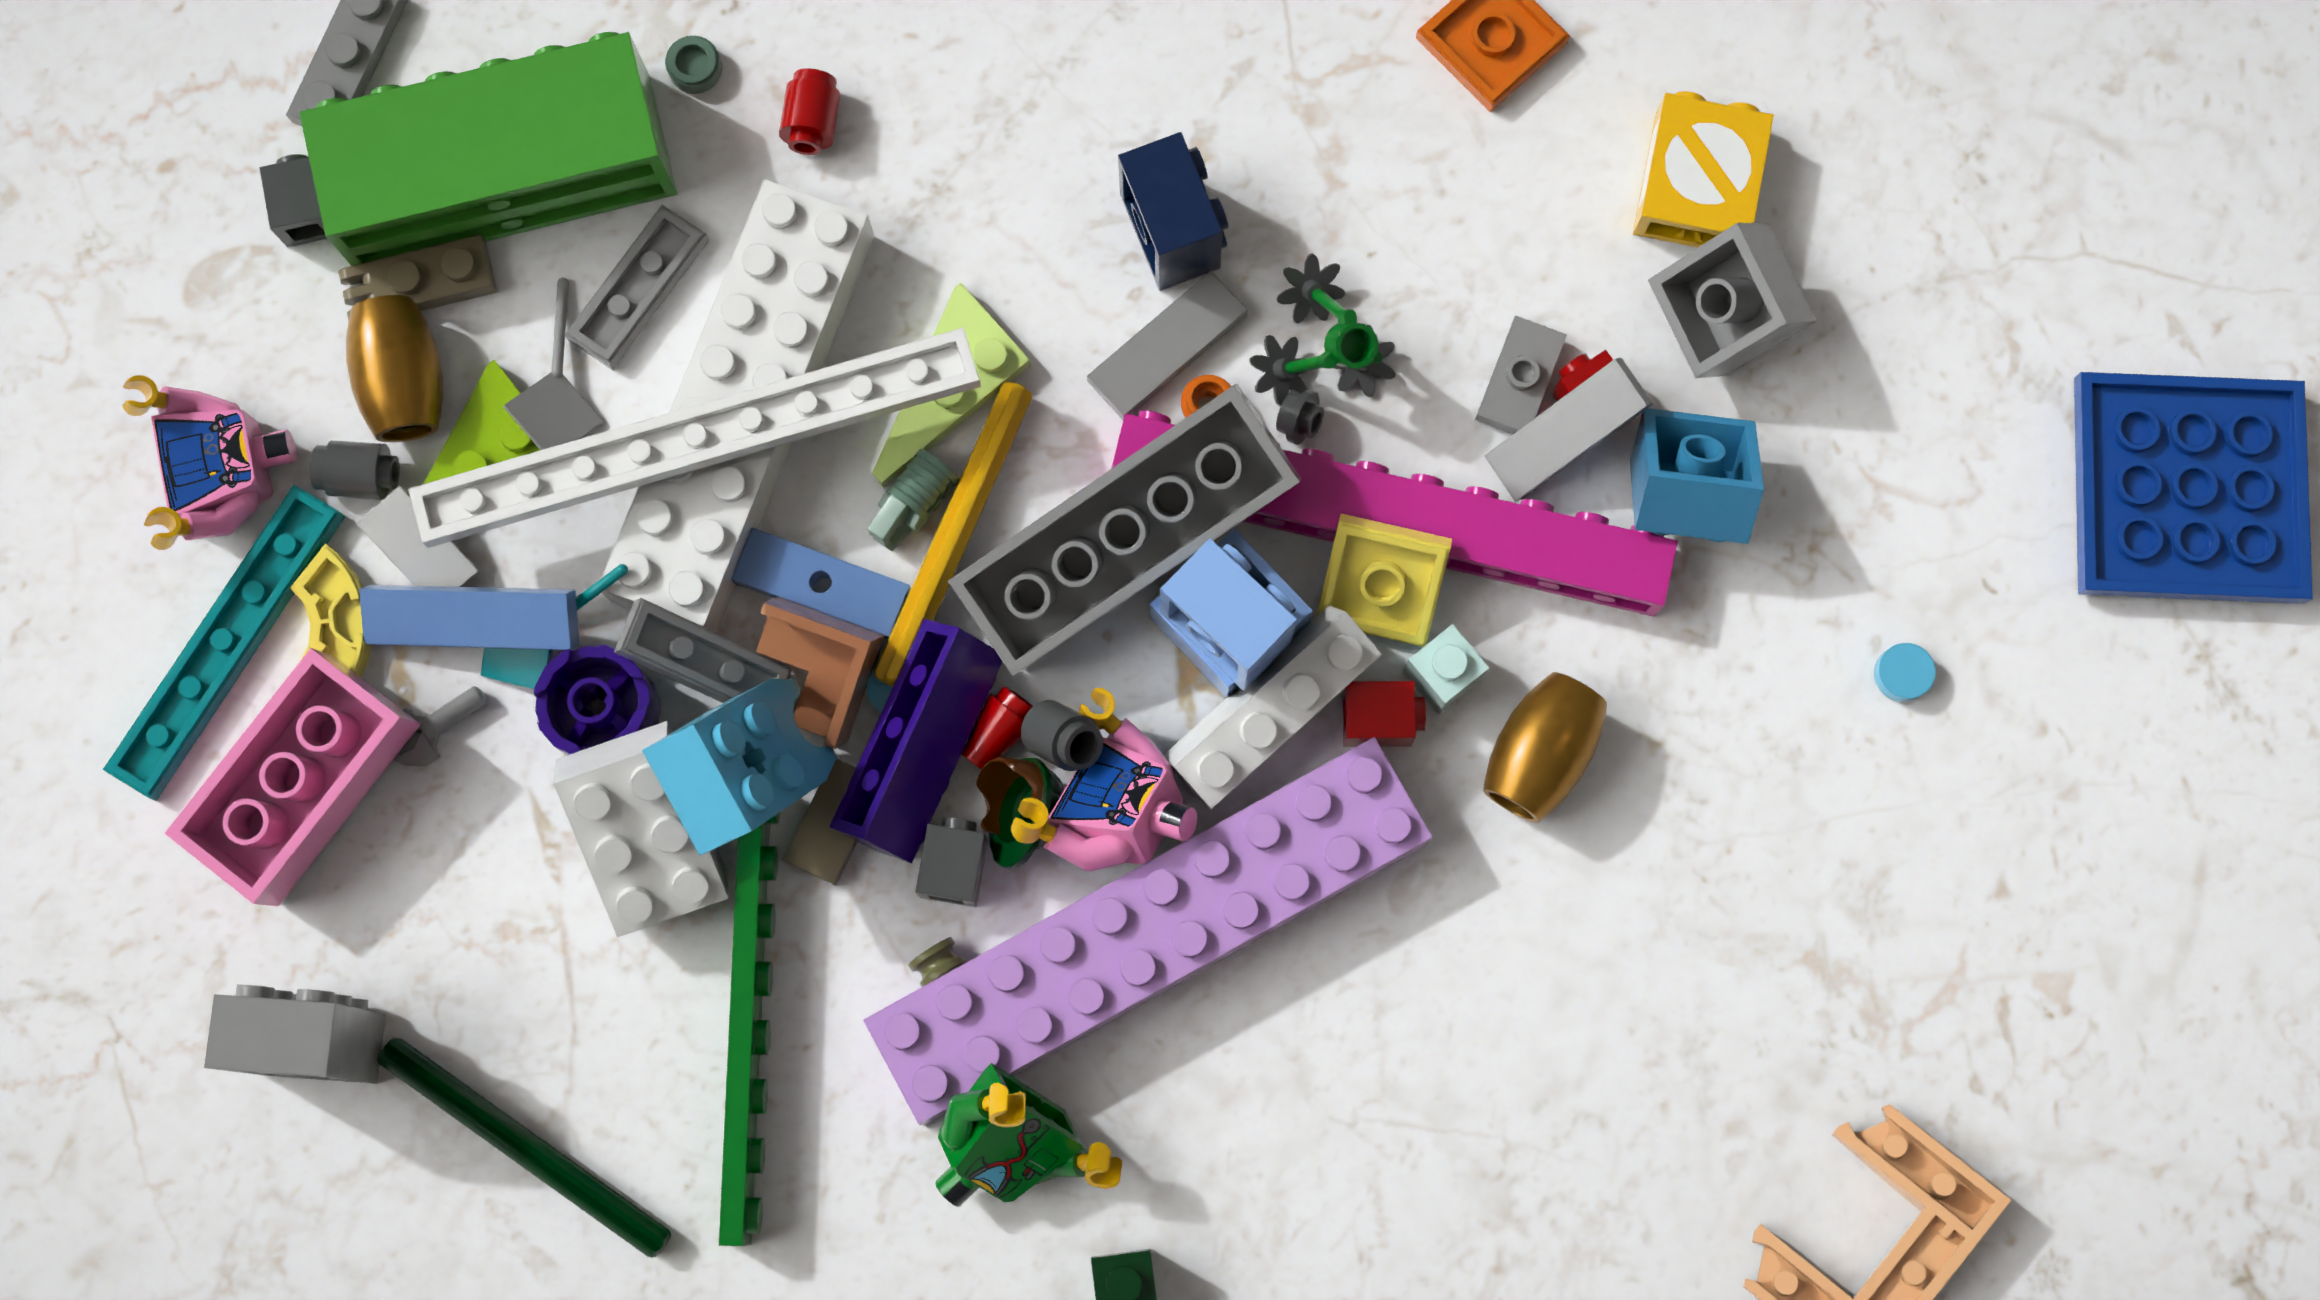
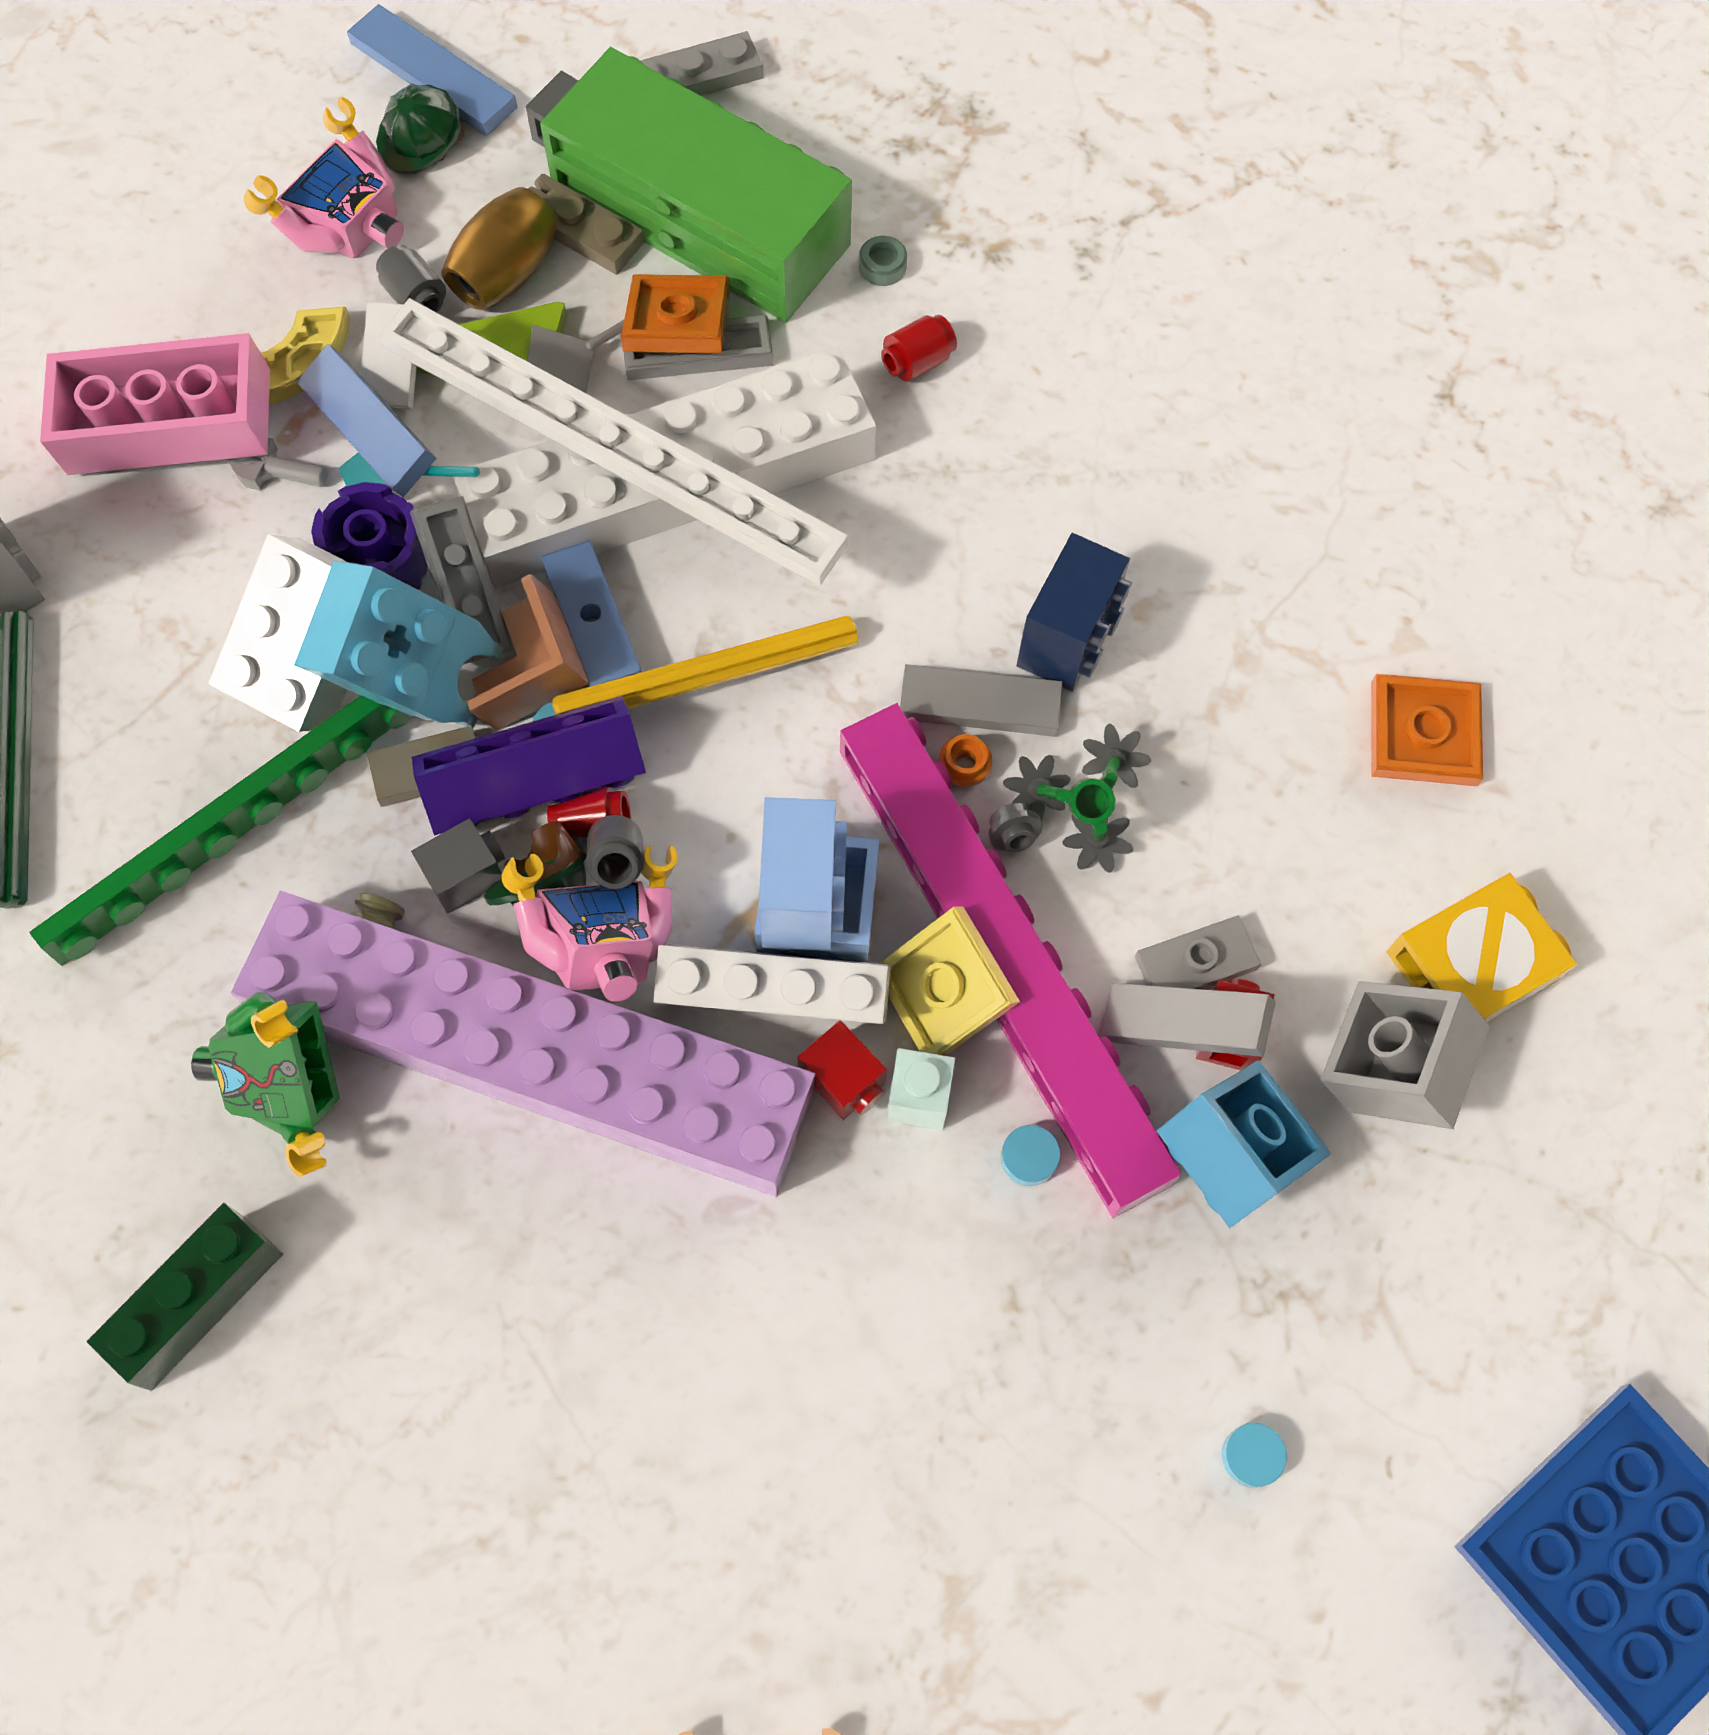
camera: 45 degrees right, 10 degrees down
(131, 271) = (425, 62): none -> medium blue tile
(191, 336) = (418, 128): none -> dark green piece
(223, 644) = (223, 305): teal tile -> none
(596, 277) = (676, 313): none -> orange tile
(911, 499) = (704, 625): sand green hinge -> none
(926, 424) = (850, 589): yellowish green wing -> none
(1125, 529) = (885, 771): light grey brick -> none
(1545, 747) = (927, 1213): pearl gold piece -> none
(1559, 634) = (1030, 1155): none -> medium azure tile

